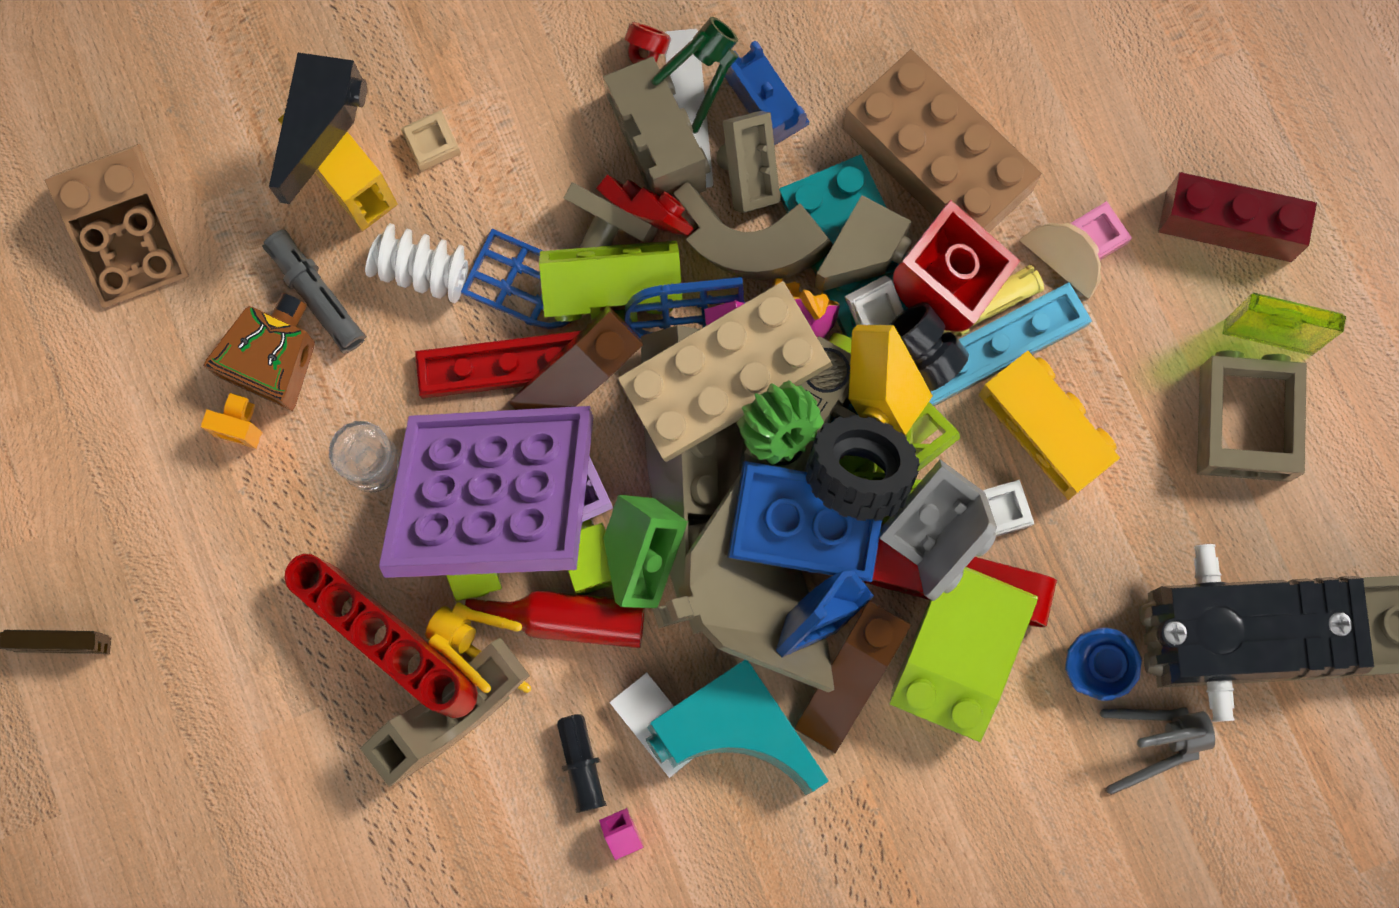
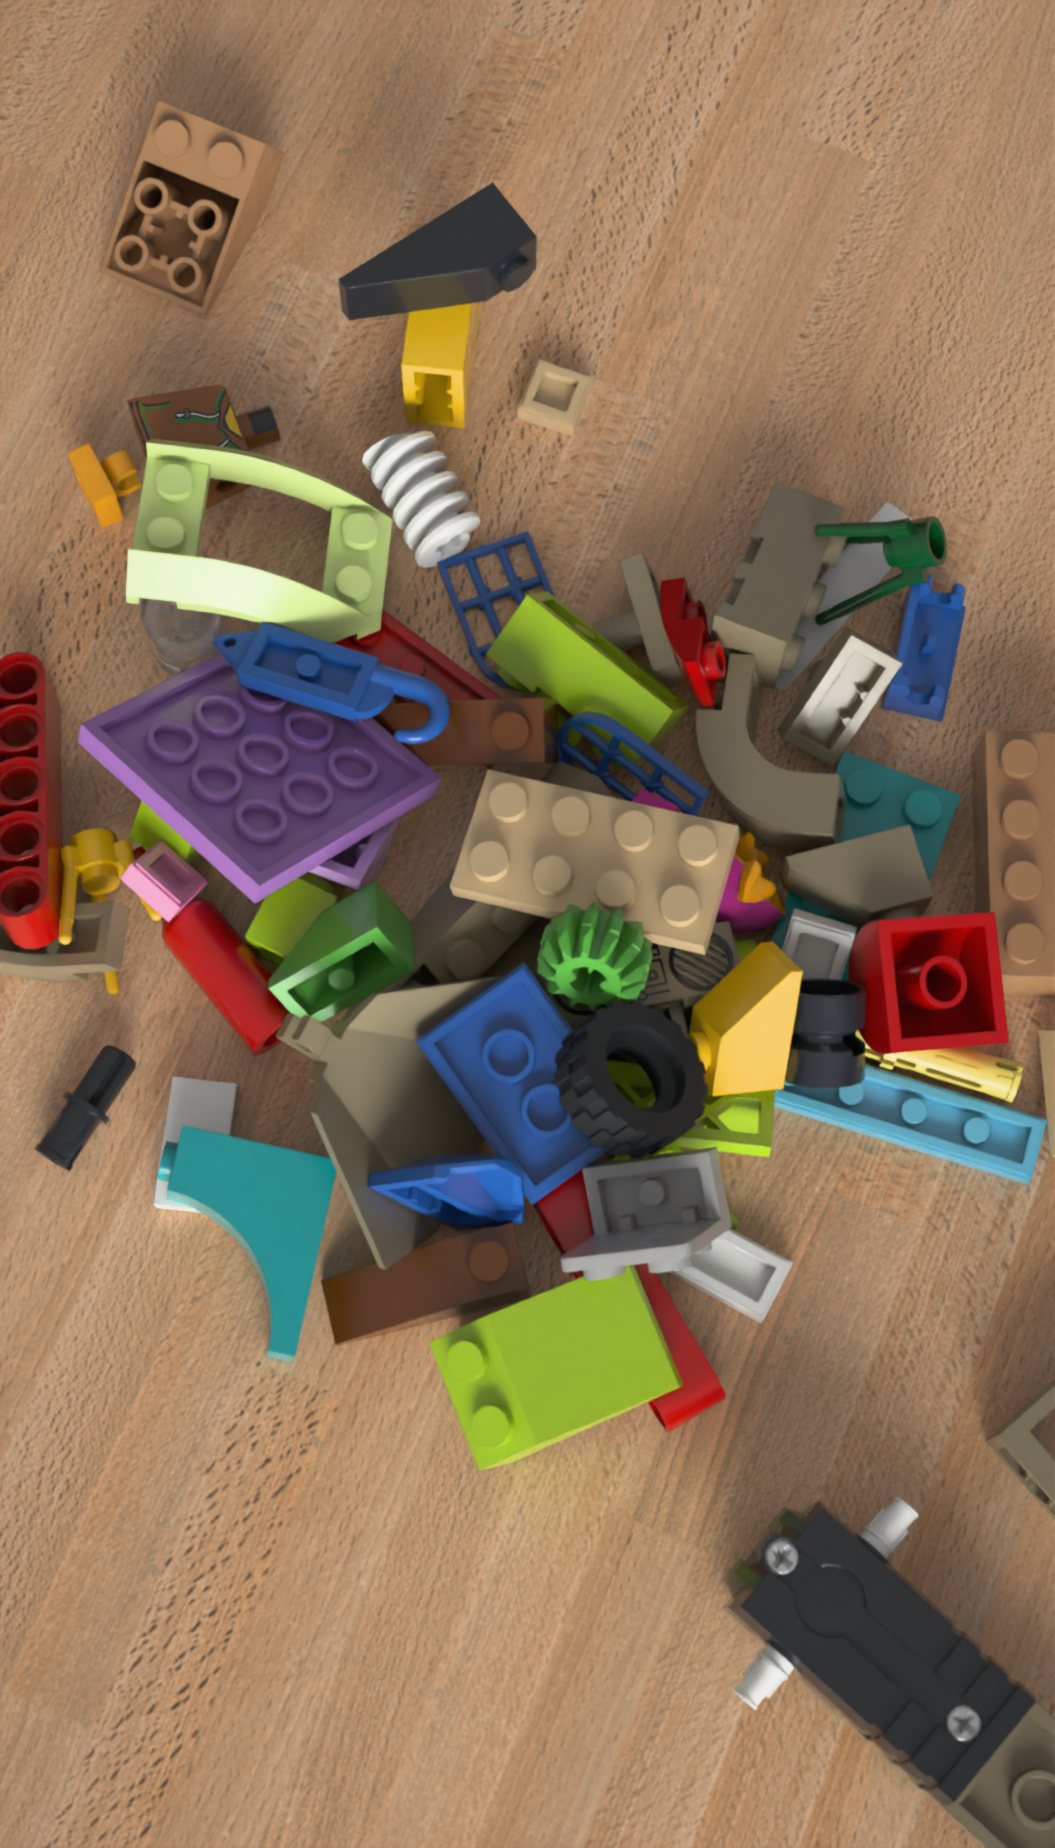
camera: 40 degrees right, 5 degrees down
(304, 278) = (304, 409): dark grey pin -> none
(315, 420) = (169, 533): none -> yellowish green wedge
(478, 410) = (329, 677): none -> blue plate
(502, 605) = (164, 880): none -> bright pink tile
(621, 834) = (52, 1211): dark pink piece -> none
(648, 38) = (861, 490): red tile -> none
(1049, 424) = (880, 1238): yellow brick -> none
(1103, 664) = (685, 1523): blue hair -> none
(1184, 734) = (701, 1682): dark grey plant -> none

